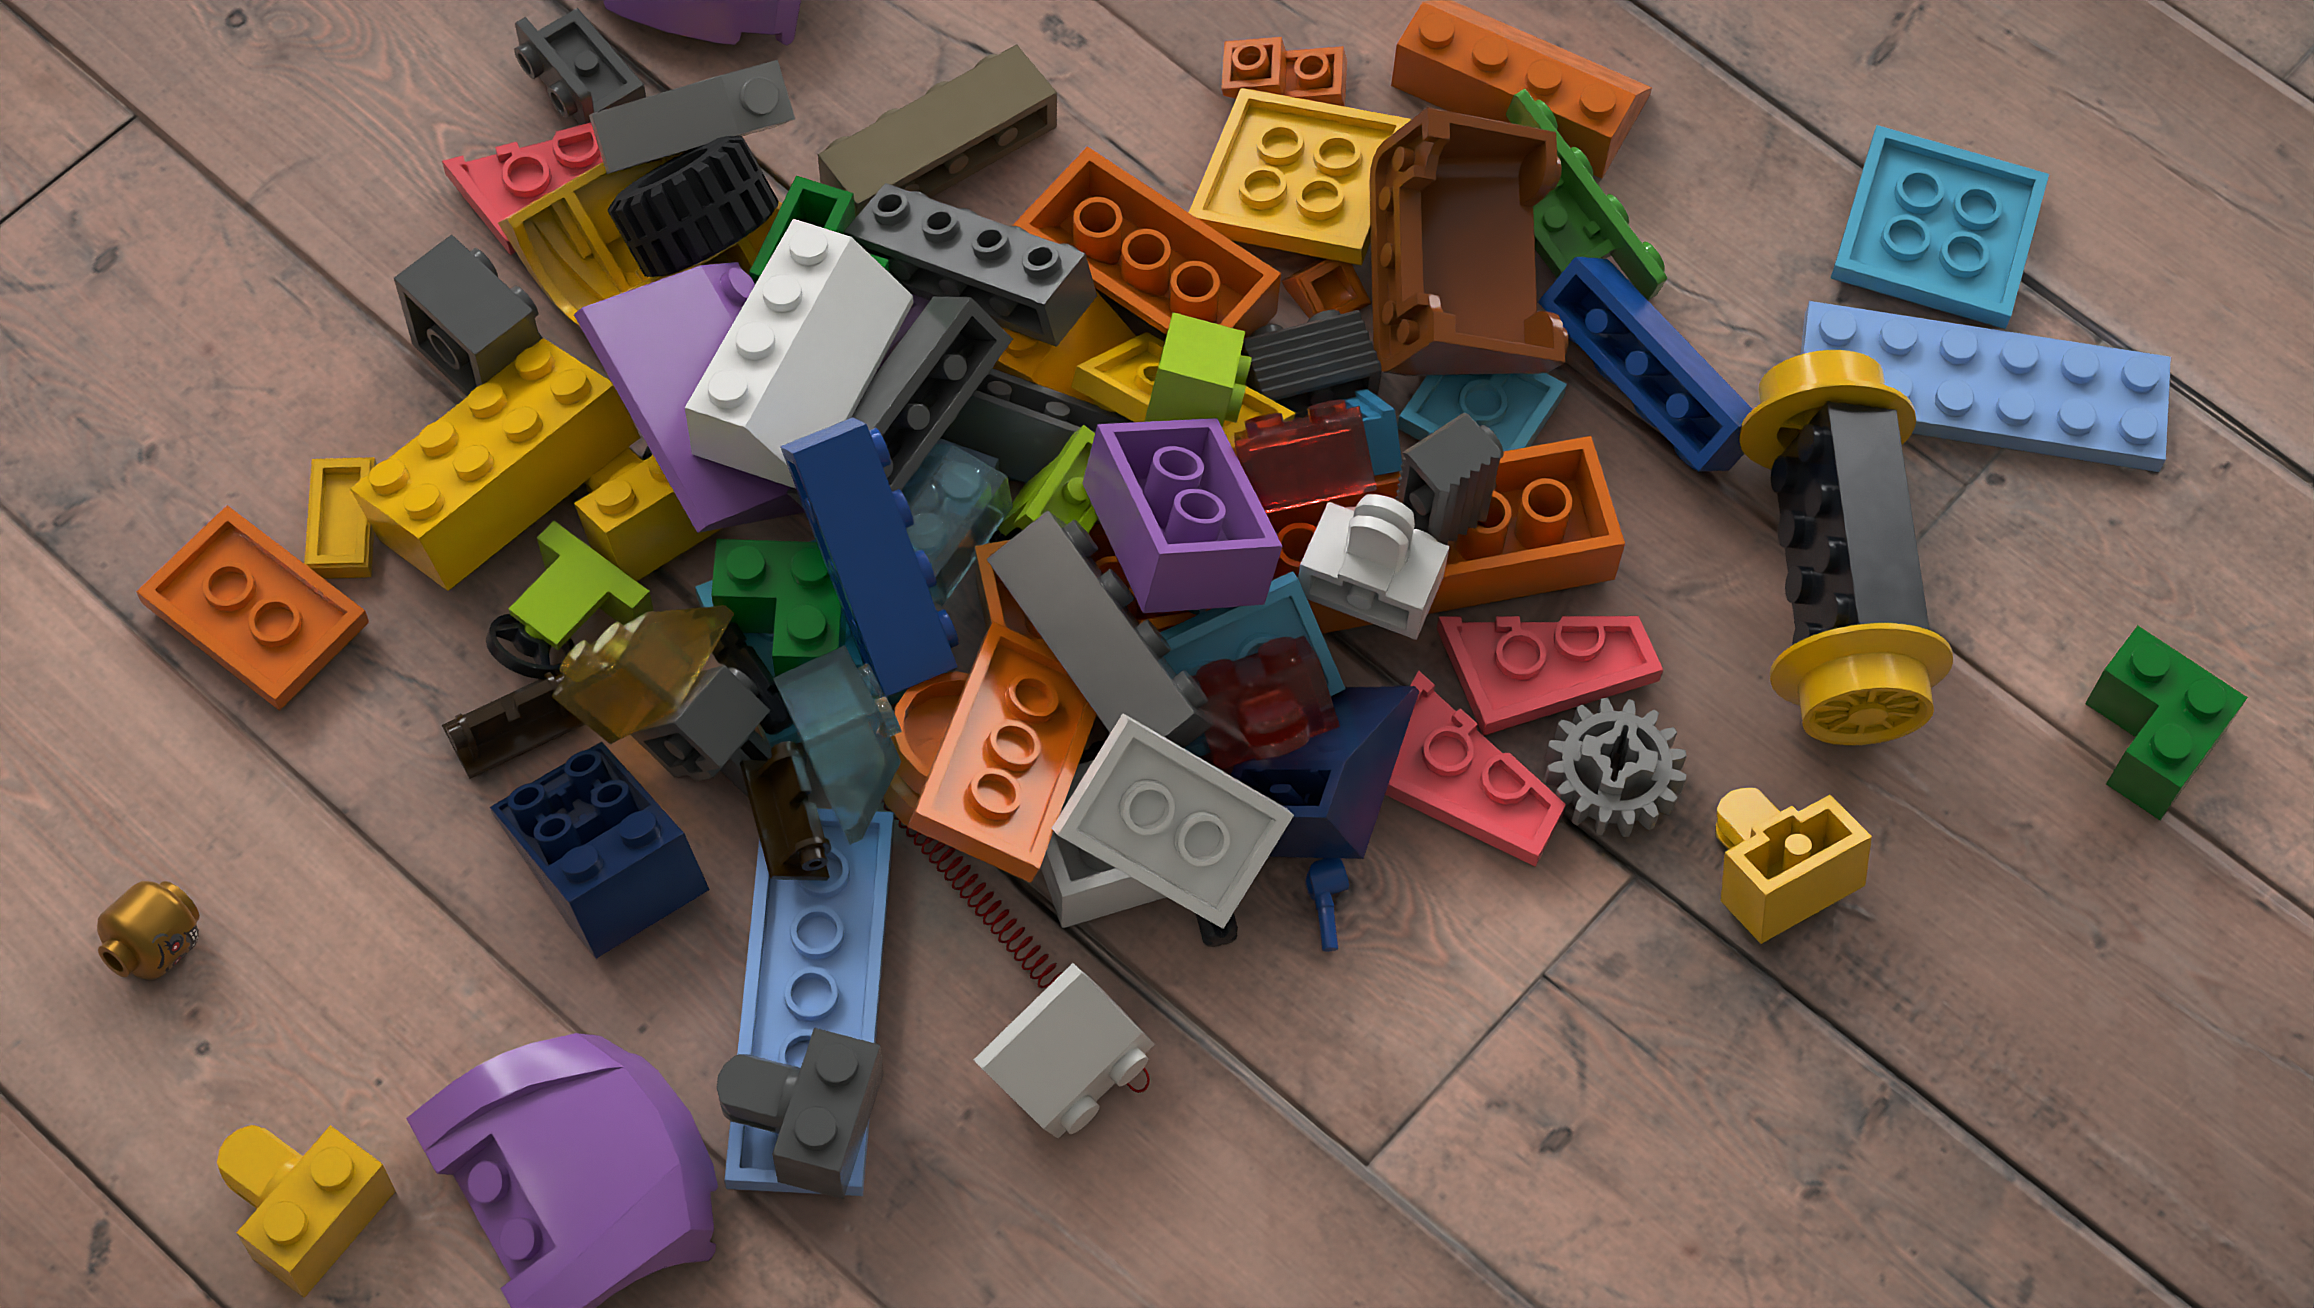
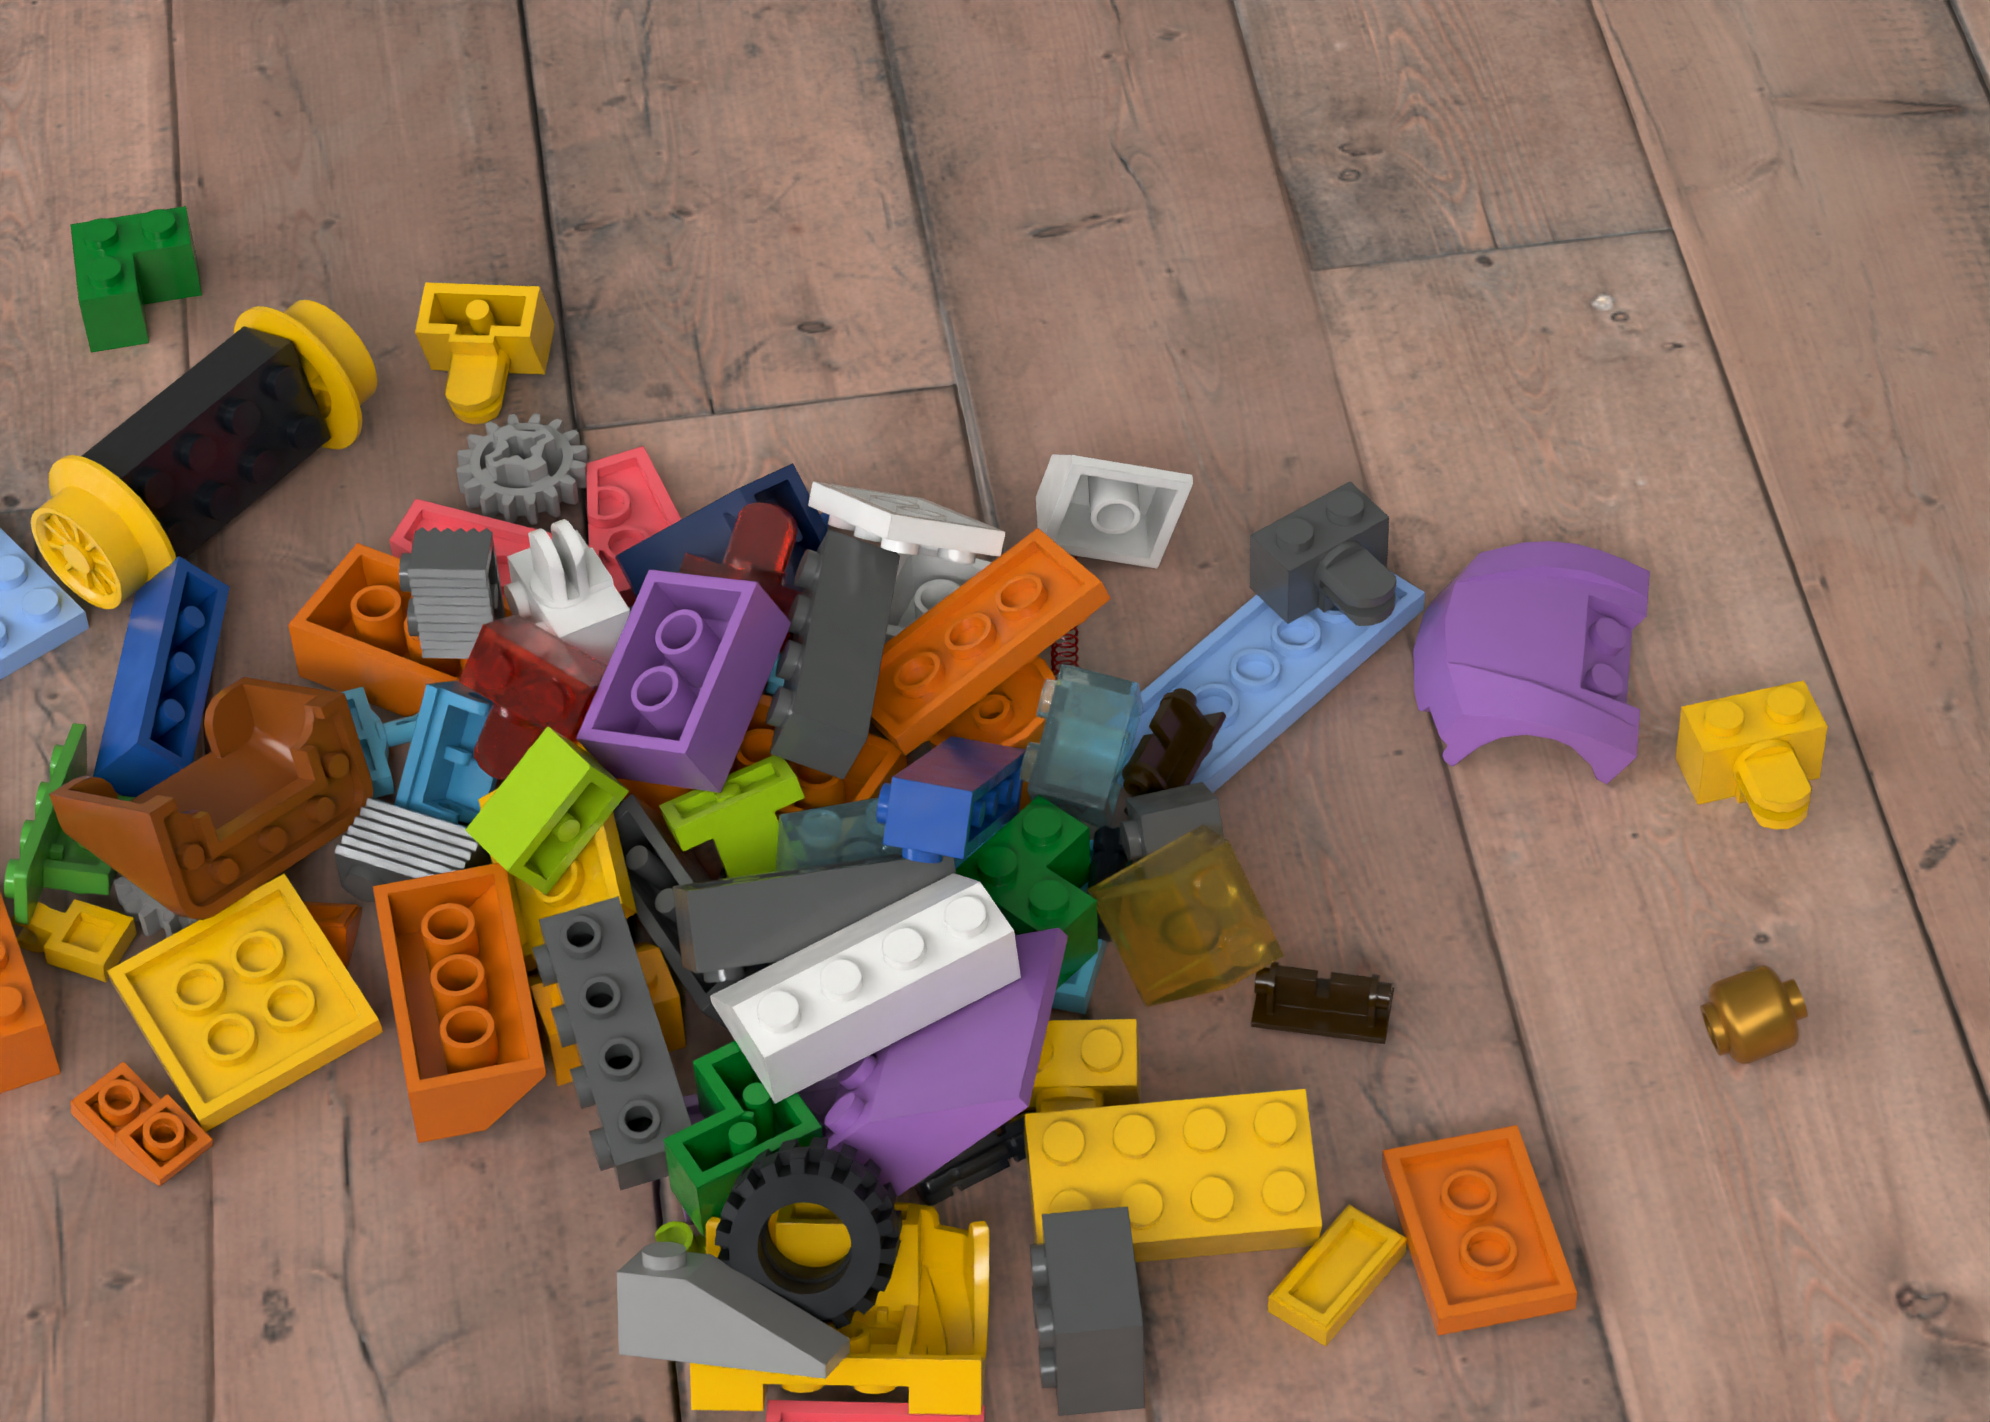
camera: 135 degrees left, 15 degrees down
(562, 601) = (1210, 1037): lime piece -> none
(601, 848) = (1332, 864): dark blue slope -> none
(946, 131) = (498, 1248): dark tan brick -> none

